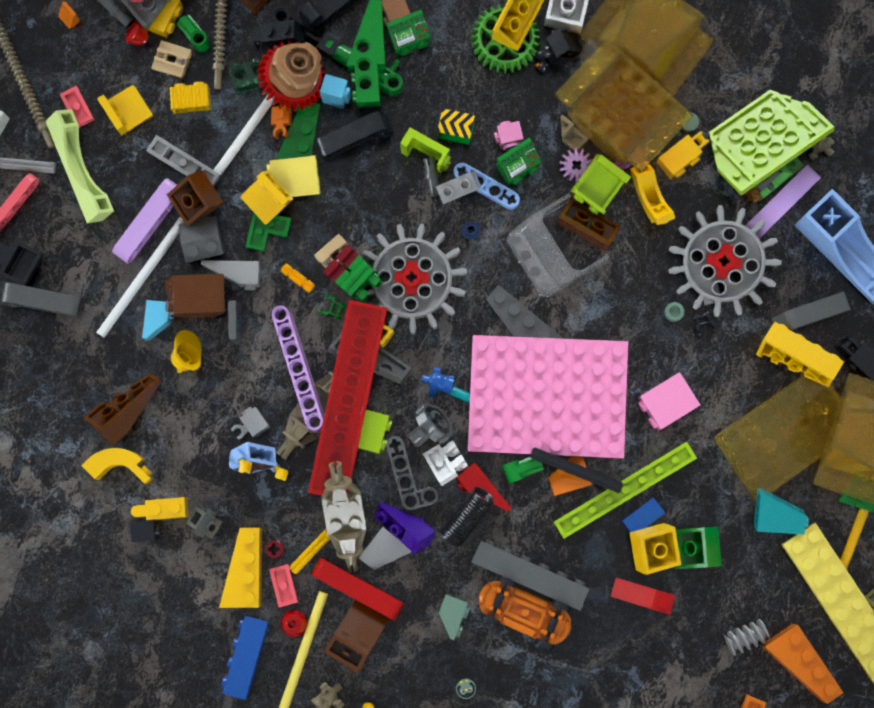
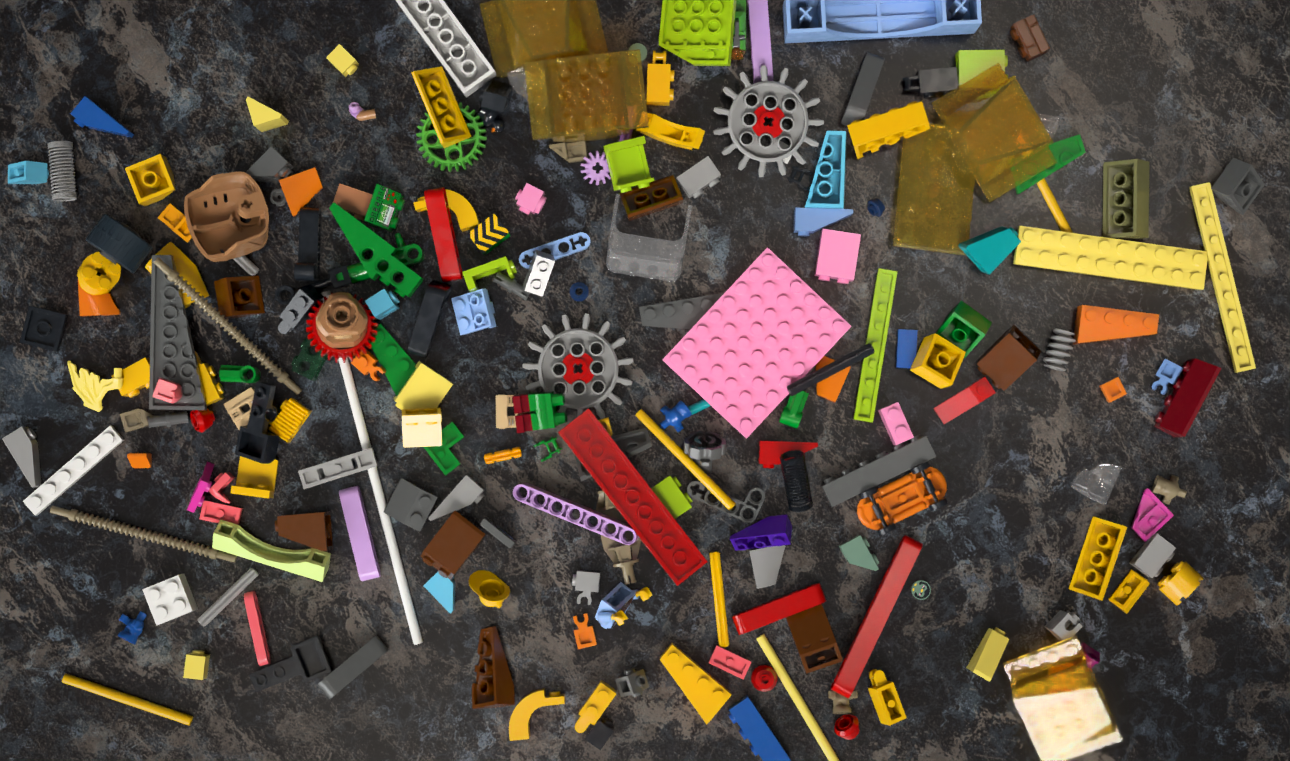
camera: 45 degrees left, 5 degrees up
(84, 75) = (202, 485): none -> dark pink wing
(101, 87) = (222, 481): none -> coral plate
(117, 178) = (308, 529): none -> reddish brown slope
(152, 83) = (254, 440): none -> black plate
(194, 197) = (375, 482): reddish brown slope -> none
(211, 454) = (584, 634): none -> orange plate
(278, 553) = (697, 652): dark red bush -> none
(344, 516) = (718, 573): dark tan plate -> none
(388, 165) = (474, 311): none -> light blue plate
(411, 420) = (686, 460): none -> yellow piece
(415, 670) = (876, 616): none -> beam
(427, 91) = (443, 234): none -> red beam
(441, 466) = (738, 467): white plate -> none
(458, 91) = (463, 209): none -> yellow arch
(518, 162) = (559, 211): green slope -> none
(578, 557) = (895, 423): none -> bright pink brick
(635, 246) = (699, 177): none -> light grey brick
(674, 312) = (773, 191): sand green tile -> none
(680, 360) = (814, 219): none -> medium blue slope
(705, 602) = (1008, 358): none -> reddish brown slope
(720, 346) = (829, 177): none -> medium azure wedge
(731, 400) = (875, 207): none -> dark blue plate

